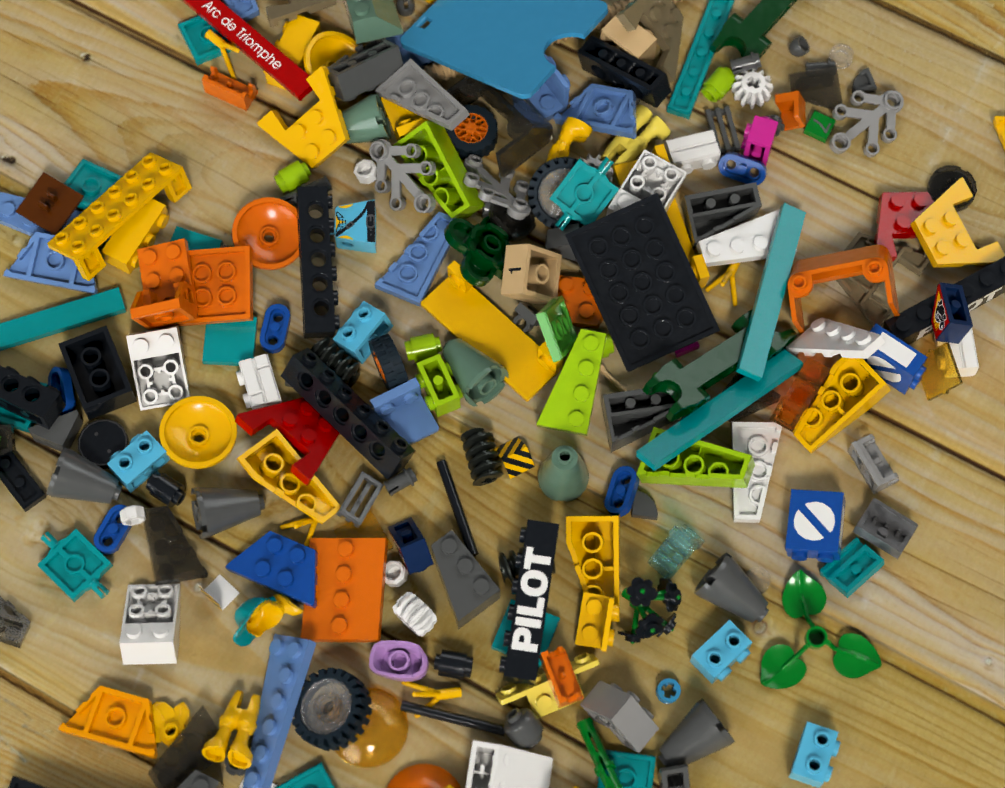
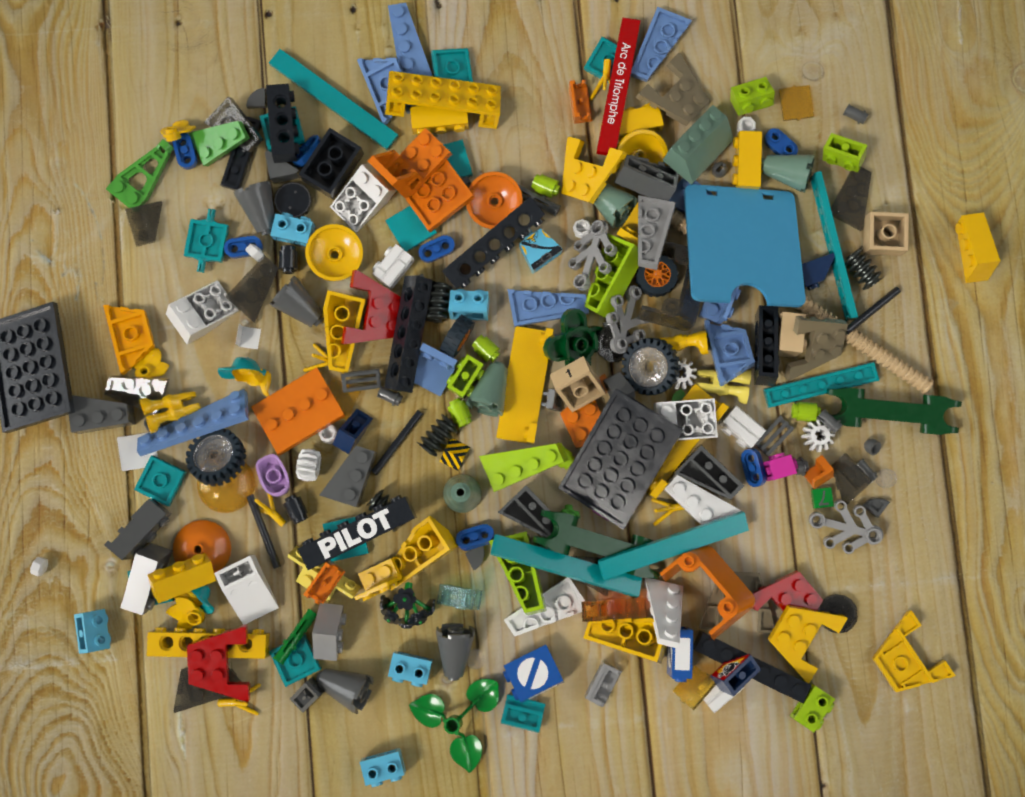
camera: 55 degrees right, 15 degrees up
(49, 204) = (420, 51): reddish brown piece -> none
(280, 566) = (286, 363): blue wing -> none
(472, 417) = (459, 412): none -> lime brick
(523, 727) = (282, 578): dark grey head -> none
(557, 328) = (549, 426): bright green tile -> none
(584, 193) = (655, 381): teal plate -> none
(603, 371) = (544, 499): tan hinge -> none
(660, 693) = (362, 646): dark azure bush -> none
(885, 528) = (562, 719): flat silver bracket -> none

